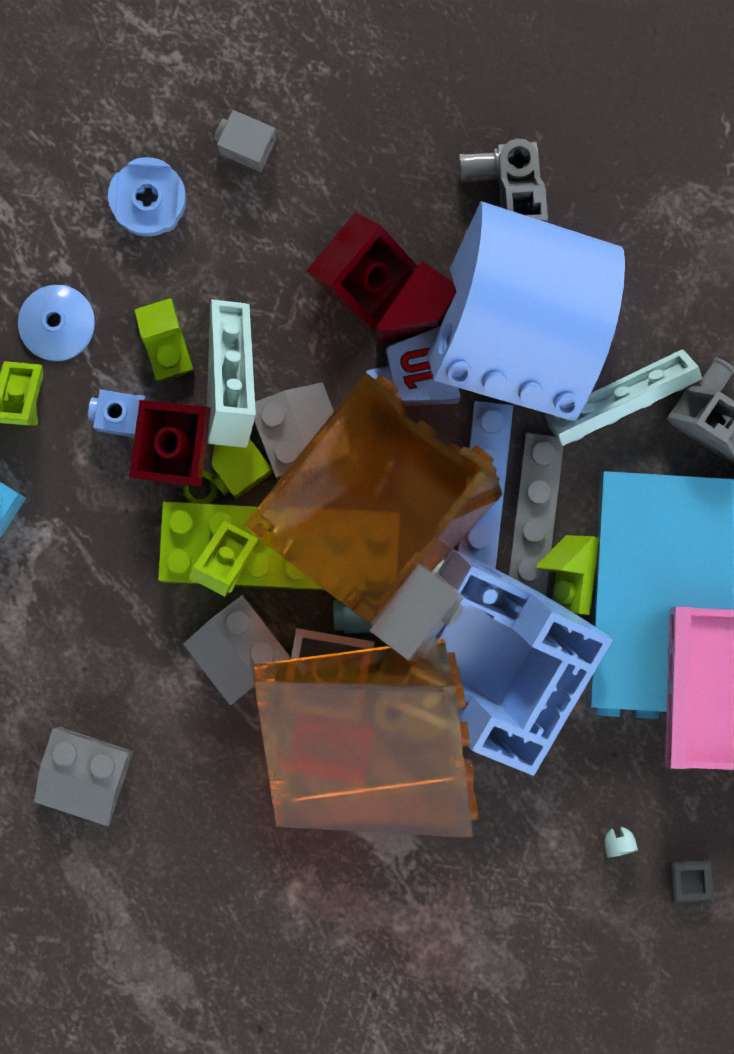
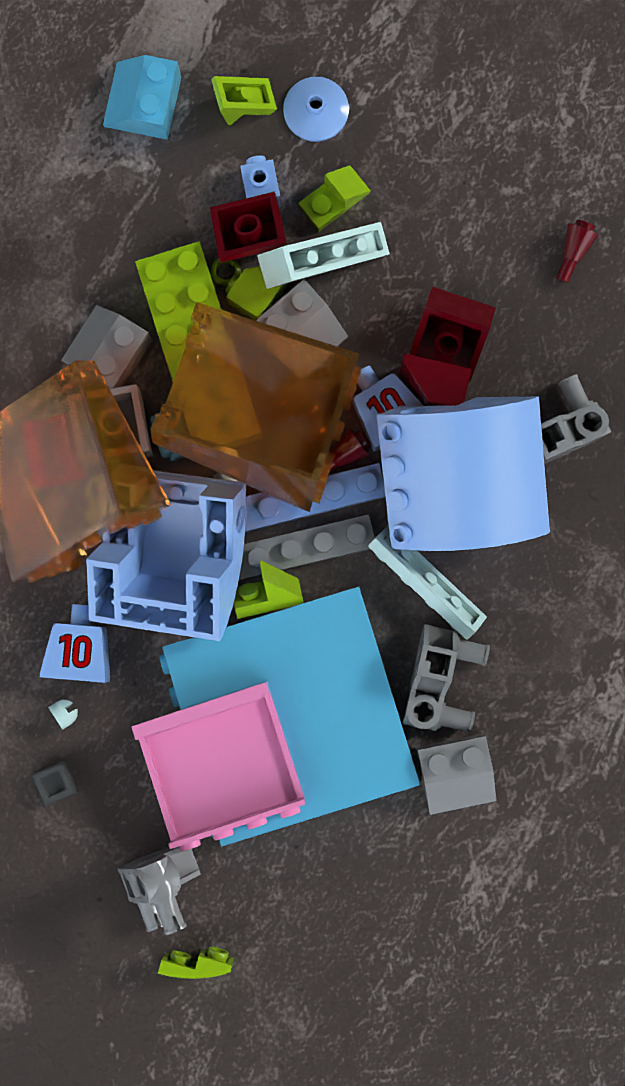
camera: 75 degrees right, 0 degrees up
(131, 181) = (453, 123): light blue plate -> none
(224, 559) = (165, 301): lime slope -> none
(245, 140) = (520, 199): light grey brick -> none
(316, 98) = (577, 243): none -> dark red cone
(418, 614) = (176, 469): light grey slope -> none
(448, 423) = (350, 448): none -> dark red cone
(557, 801) = (77, 650): none -> light blue torso

